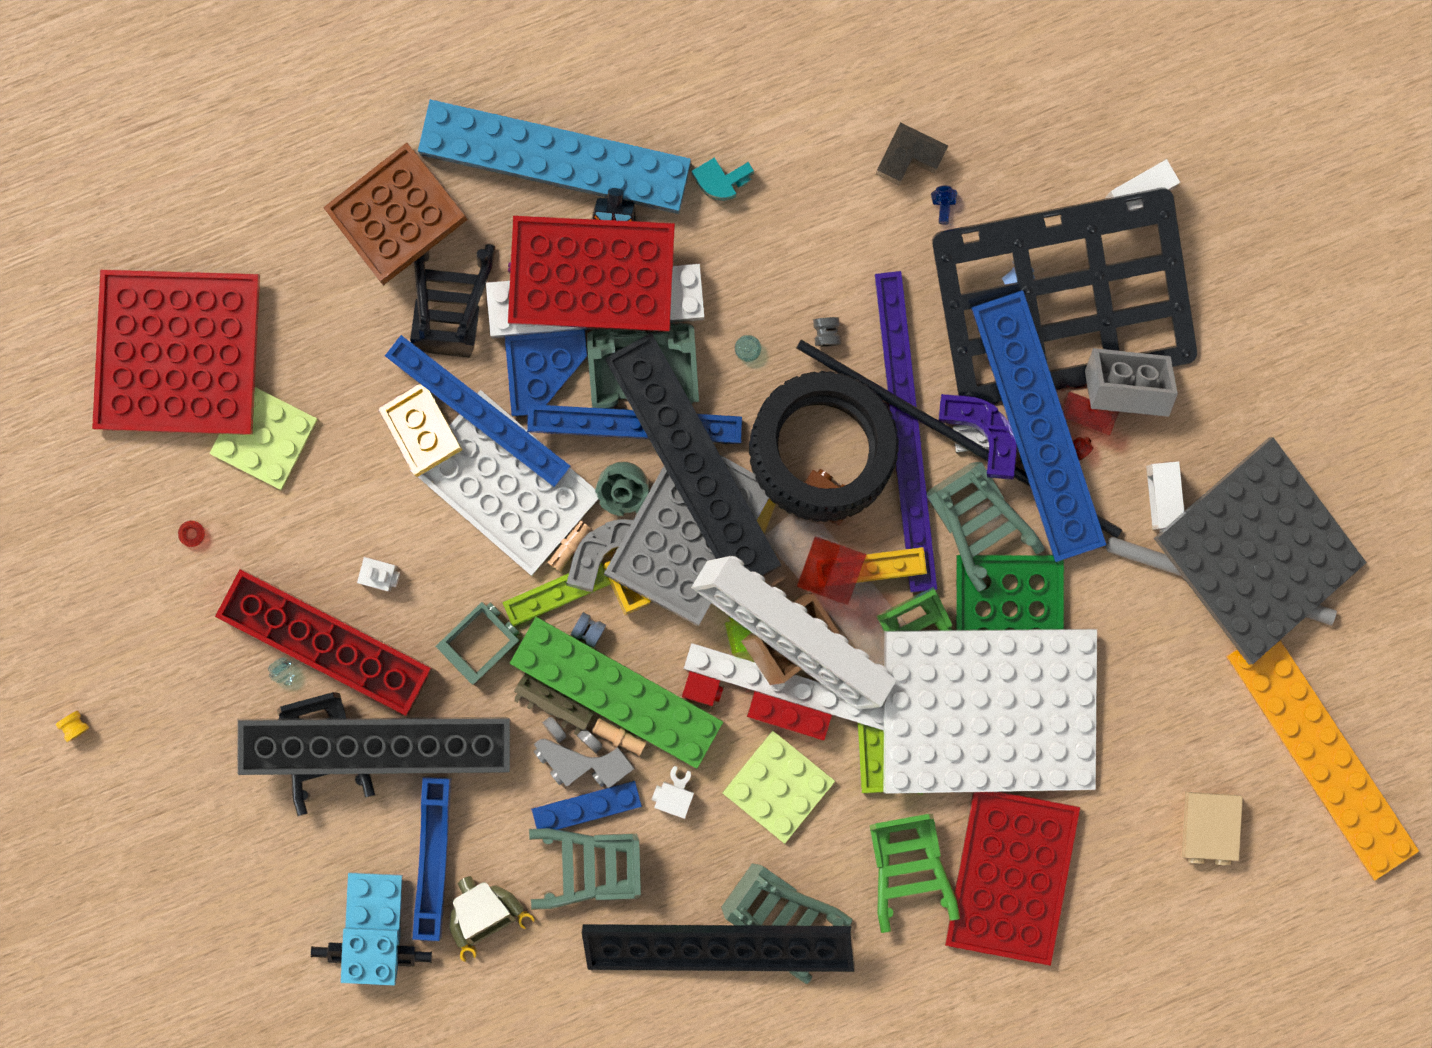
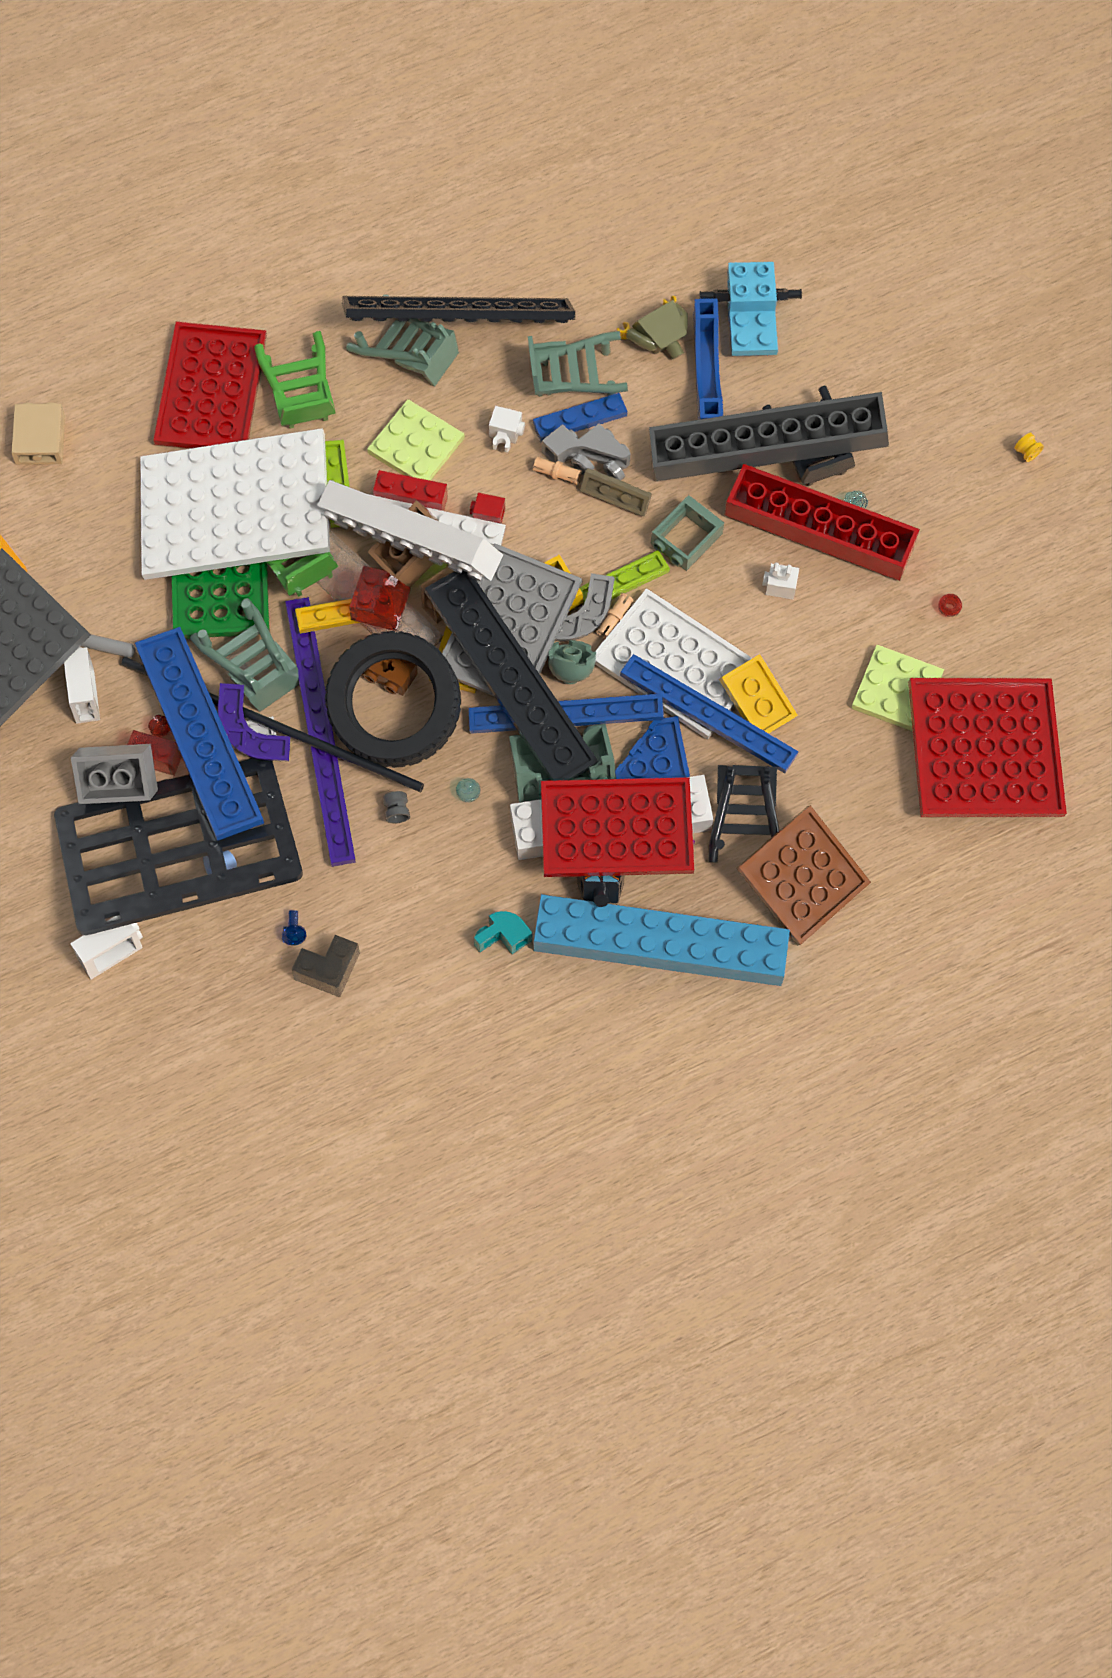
camera: 175 degrees right, 20 degrees down
(593, 633) = (591, 549): sand blue wheel -> none
(616, 692) = (563, 502): bright green brick -> none

